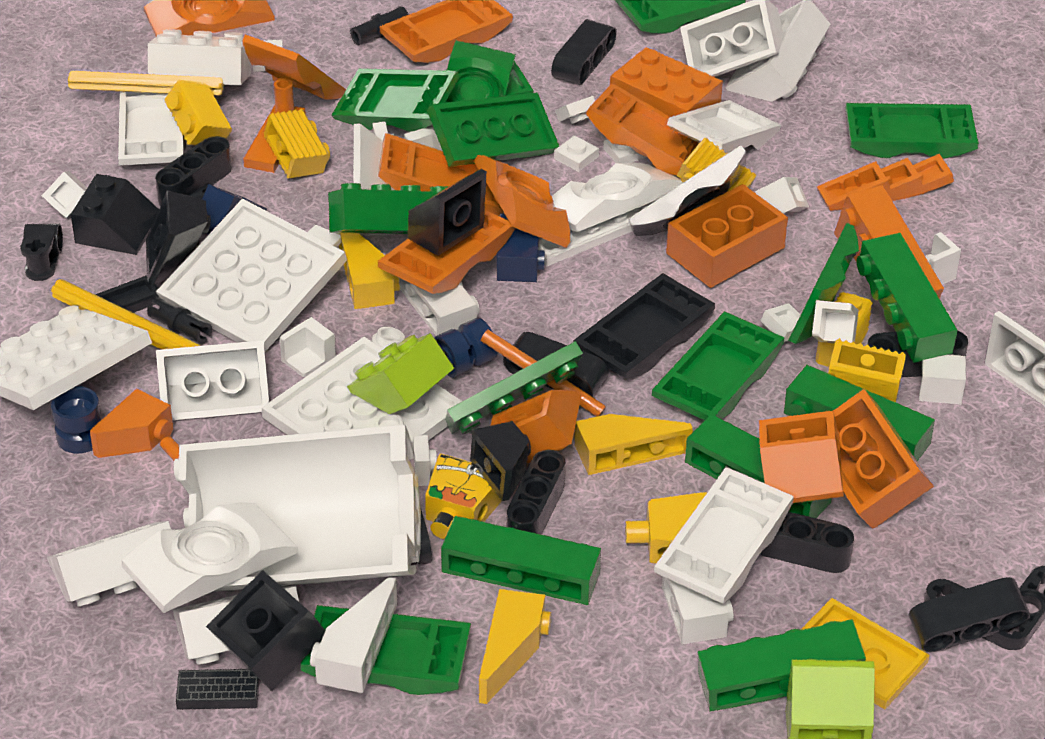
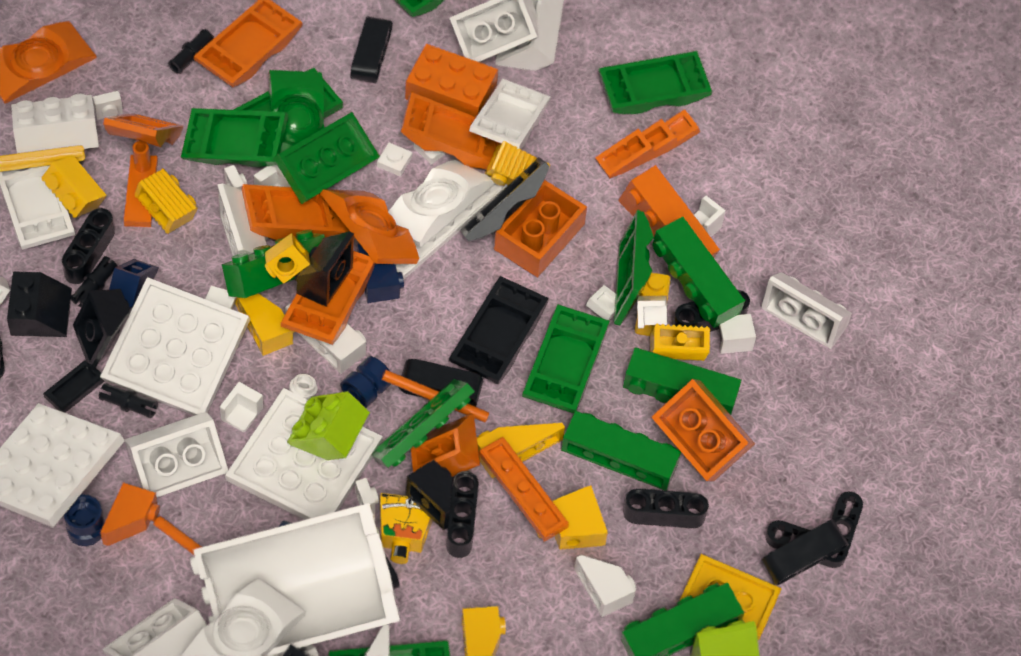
camera: 20 degrees left, 15 degrees up
(74, 295) = (84, 411): yellow axle -> none
(415, 186) = (290, 248): none -> yellow brick
(521, 560) = (467, 573): green brick -> none
(575, 111) = (383, 115): white plate -> none
(619, 479) = (523, 489): none -> orange tile
(725, 535) = (617, 527): white slope -> none
(784, 195) = (571, 177): white panel -> none
(802, 455) = (658, 448): orange slope -> none

